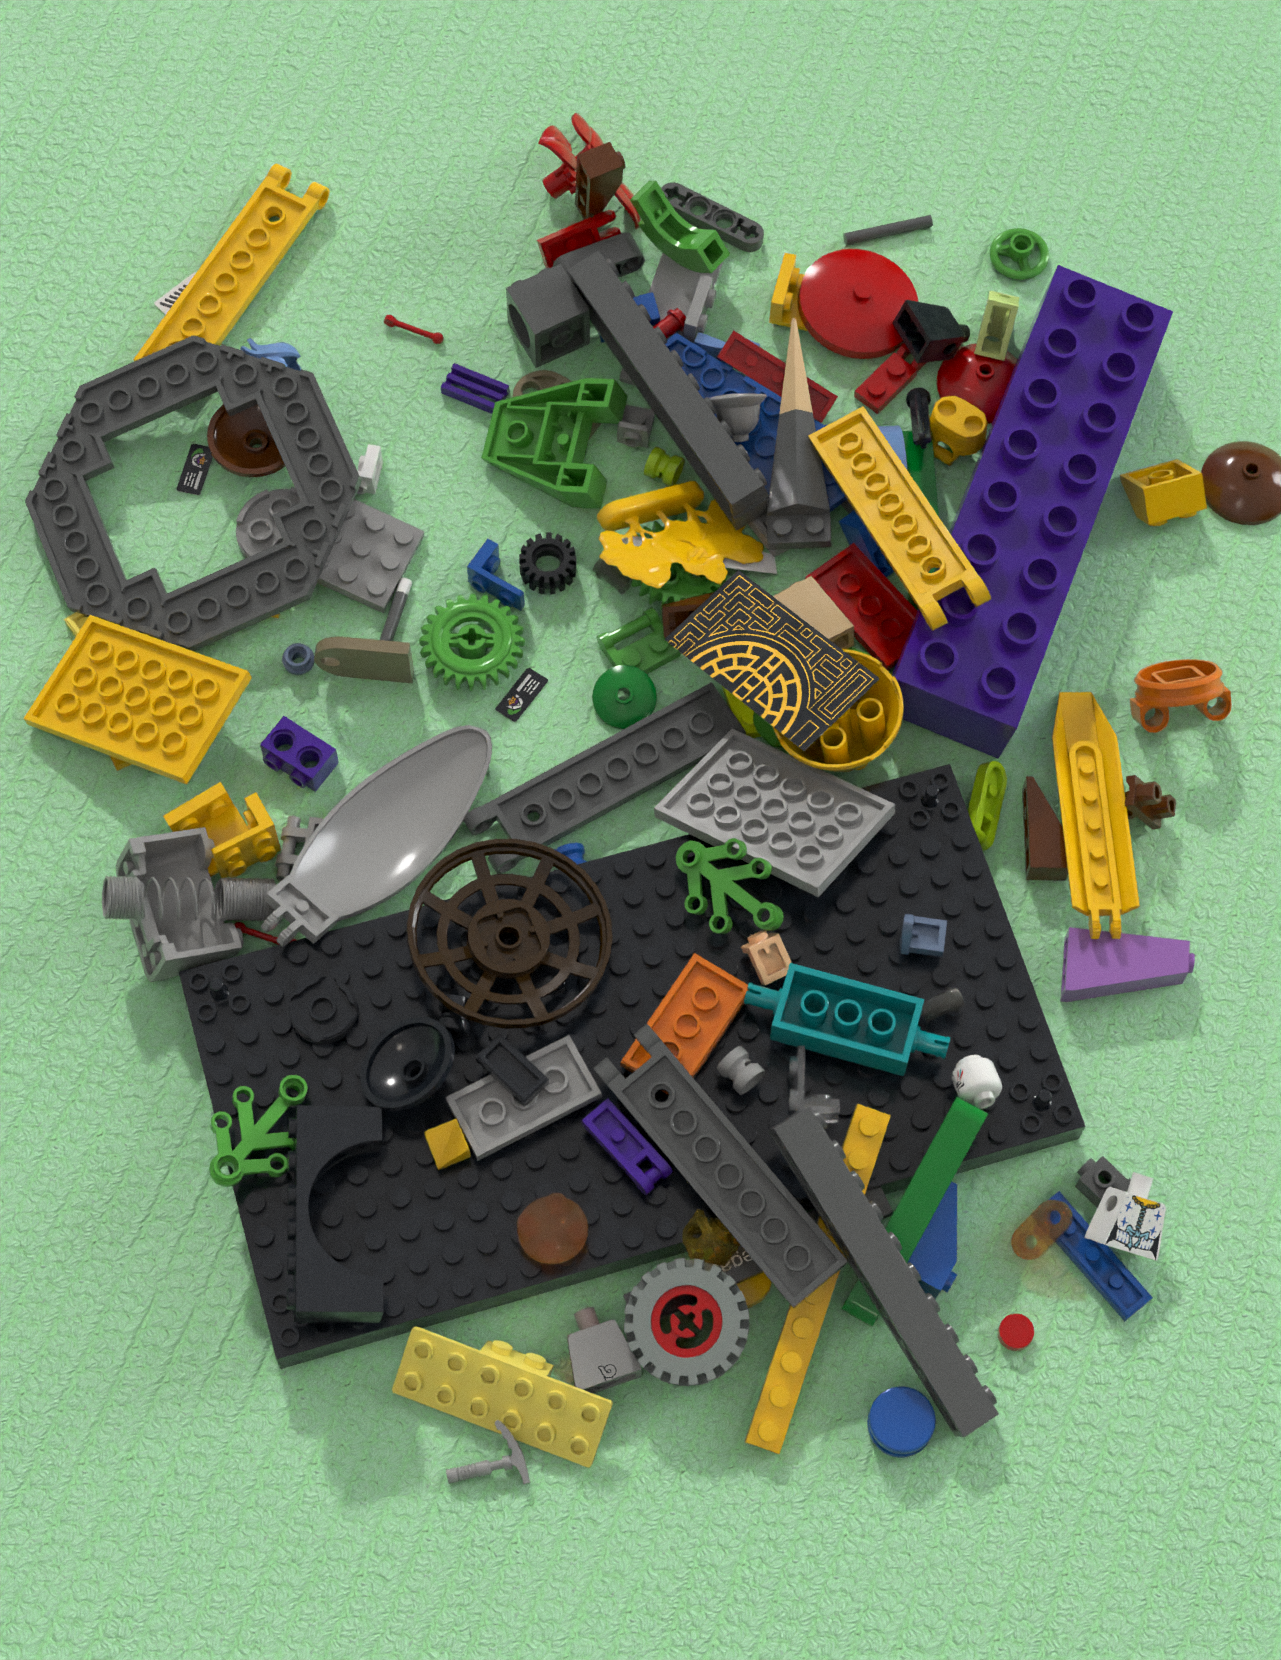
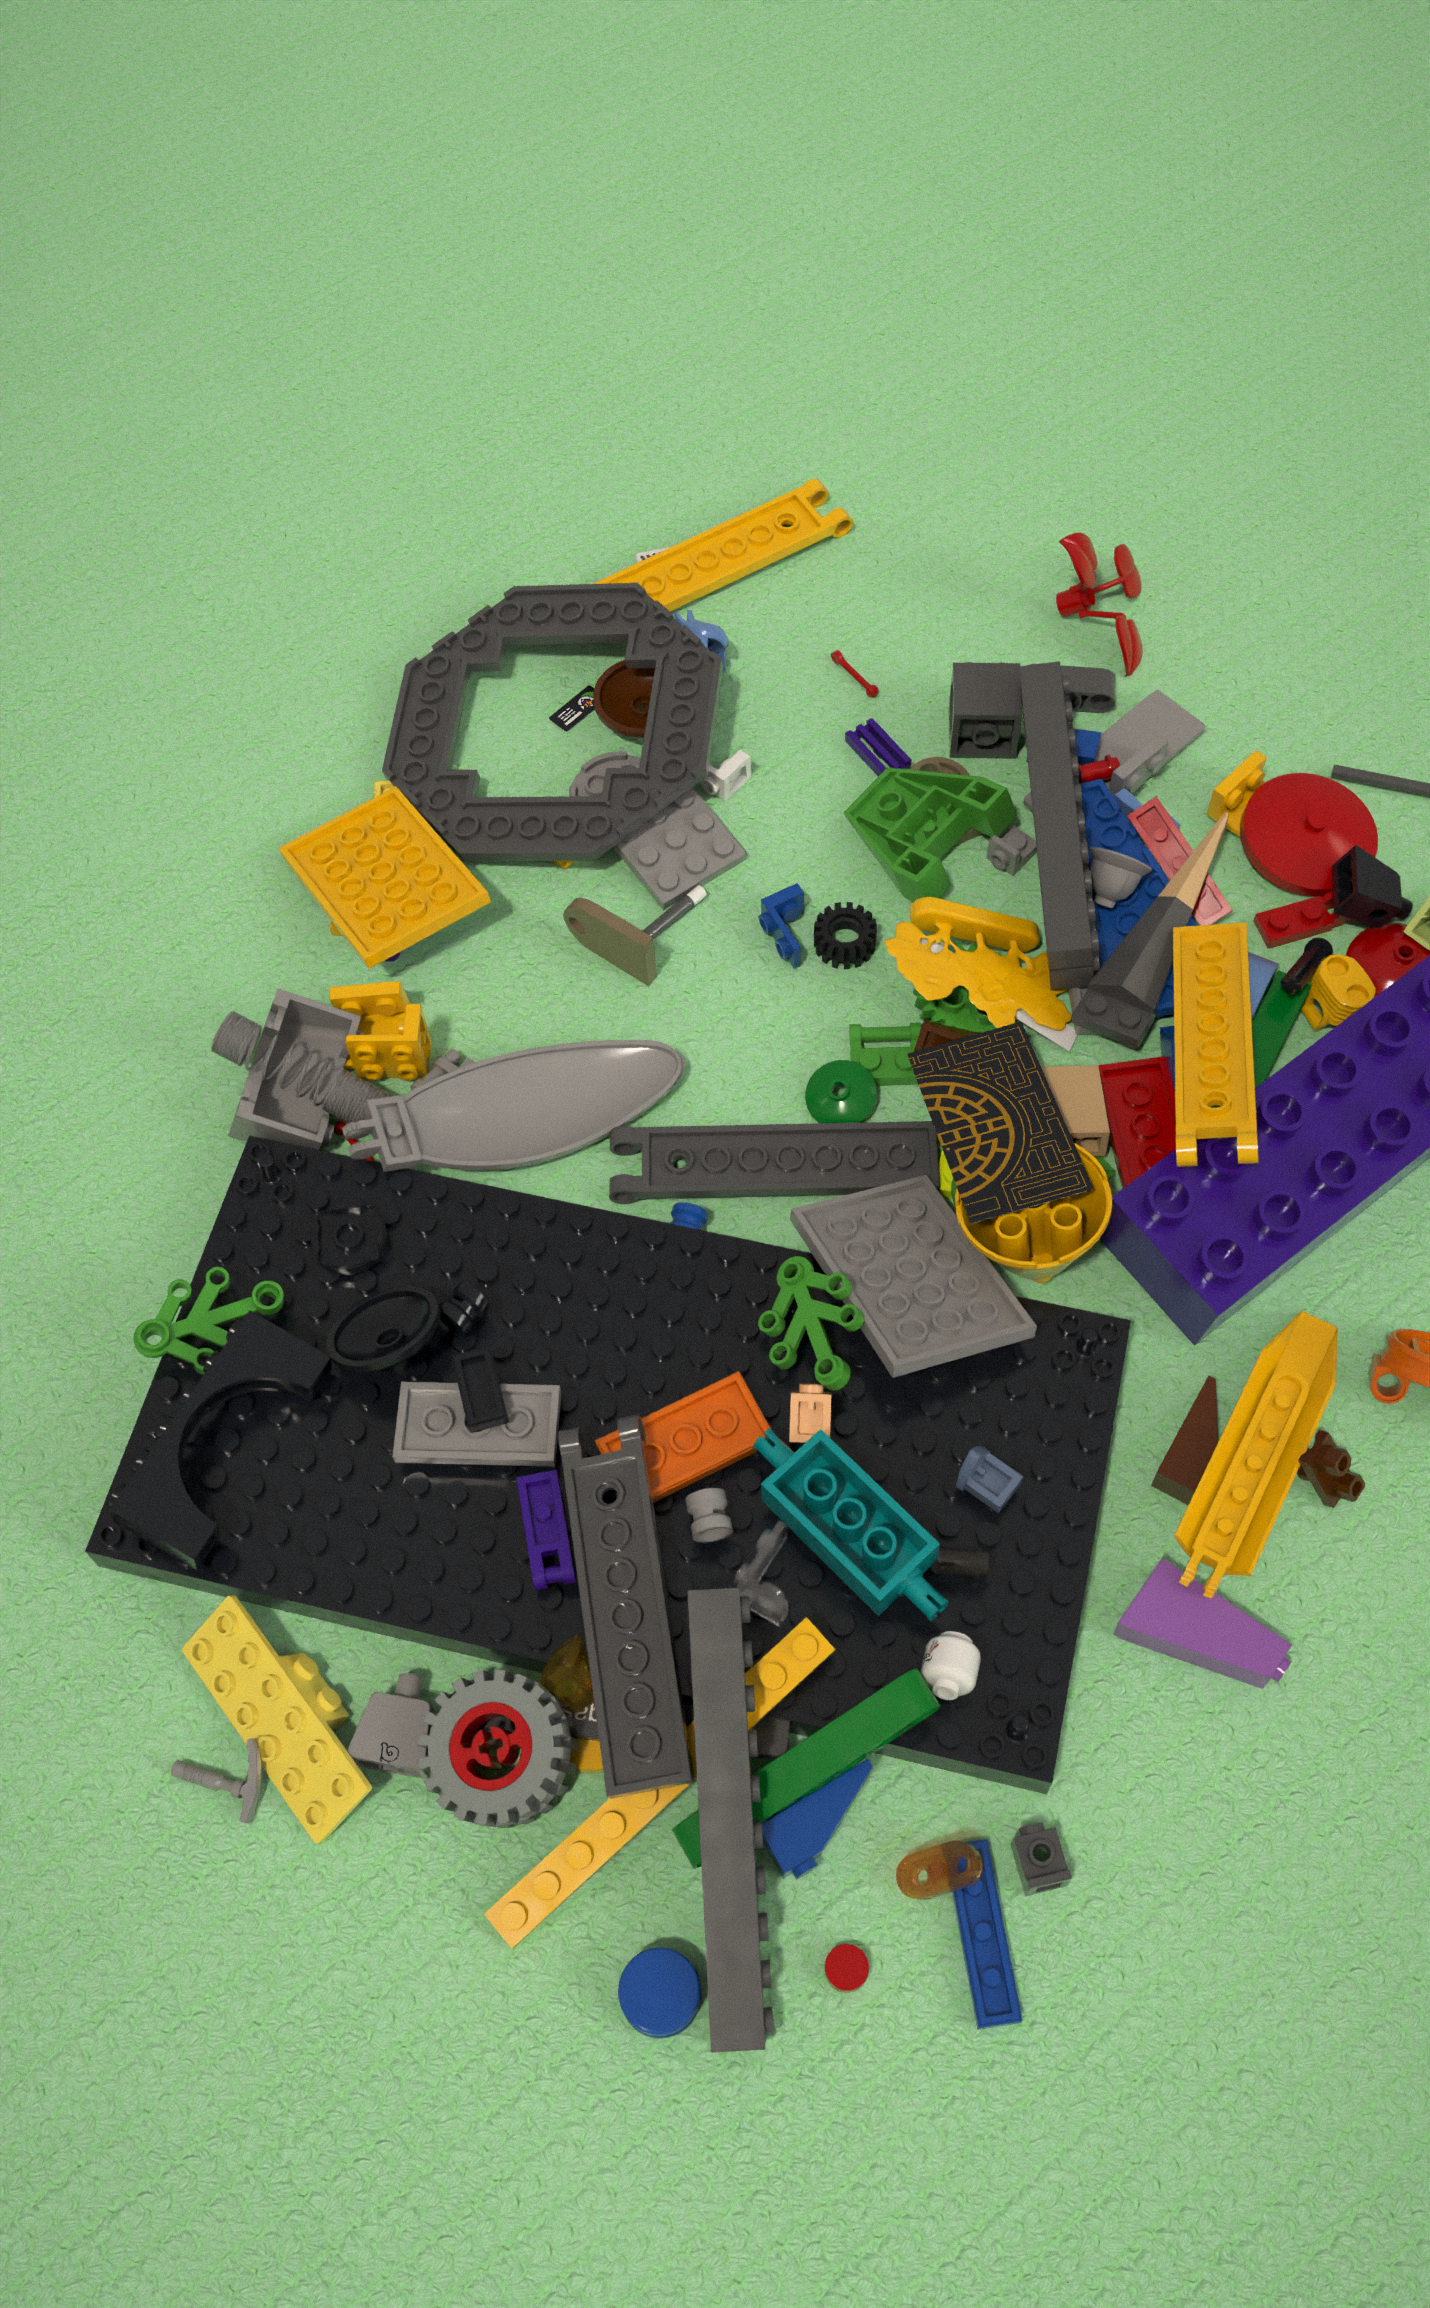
camera: 35 degrees right, 5 degrees down
(298, 651) = (550, 906): sand blue plate -> none
(304, 749) = (501, 995): dark purple brick -> none
(447, 1144) = (374, 1429): yellow slope -> none
(473, 663) = (729, 986): bright green gear -> none
(512, 917) = (566, 1235): dark brown dish -> none
(521, 694) = (744, 1045): black sticker -> none
(552, 1229) = (419, 1572): clear orange dish -> none
(576, 237) = (1066, 652): red hinge -> none
(597, 178) = (1105, 605): reddish brown slope -> none
(612, 575) = (904, 986): clear smoke pin -> none
(664, 466) = (1014, 896): lime wheel -> none
(682, 242) = (1155, 693): bright green arch -> none
(714, 213) = (1212, 692): dark grey beam -> none
(987, 801) = (1151, 1382): lime plate -> none
(1129, 1219) = (1040, 1917): white torso -> none

